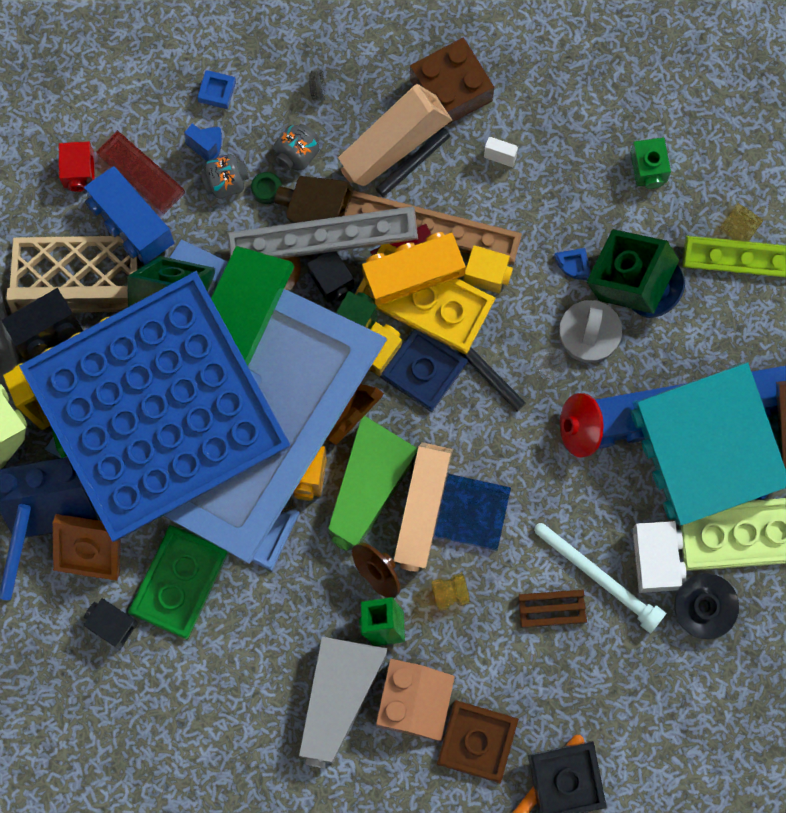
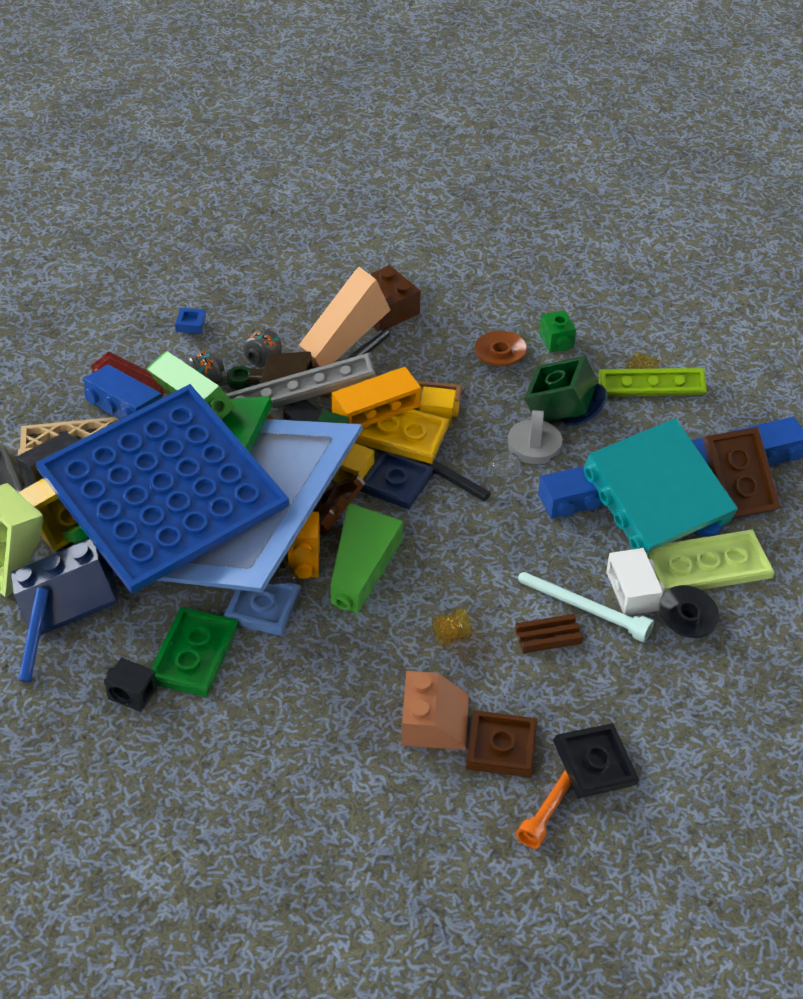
camera: 10 degrees left, 30 degrees down
(76, 165) = (73, 370): red brick -> none
(84, 548) = (103, 622): dark orange plate -> none
(203, 233) = (175, 374): none -> slope
(204, 142) = (181, 345): blue tile -> none
(317, 85) = (274, 310): clear smoke tile -> none
(338, 692) = (360, 716): light grey slope -> none
(376, 569) = (380, 611): reddish brown dish -> none
(382, 621) = (392, 651): green brick -> none
(422, 506) = (414, 561): light nougat slope -> none
(472, 512) = (459, 572): clear blue tile -> none
(500, 151) = (433, 335): white tile -> none
(574, 263) = (510, 399): blue tile -> none
(580, 170) = (500, 348): none -> dark orange dish
(581, 425) = (543, 493): red dish -> none

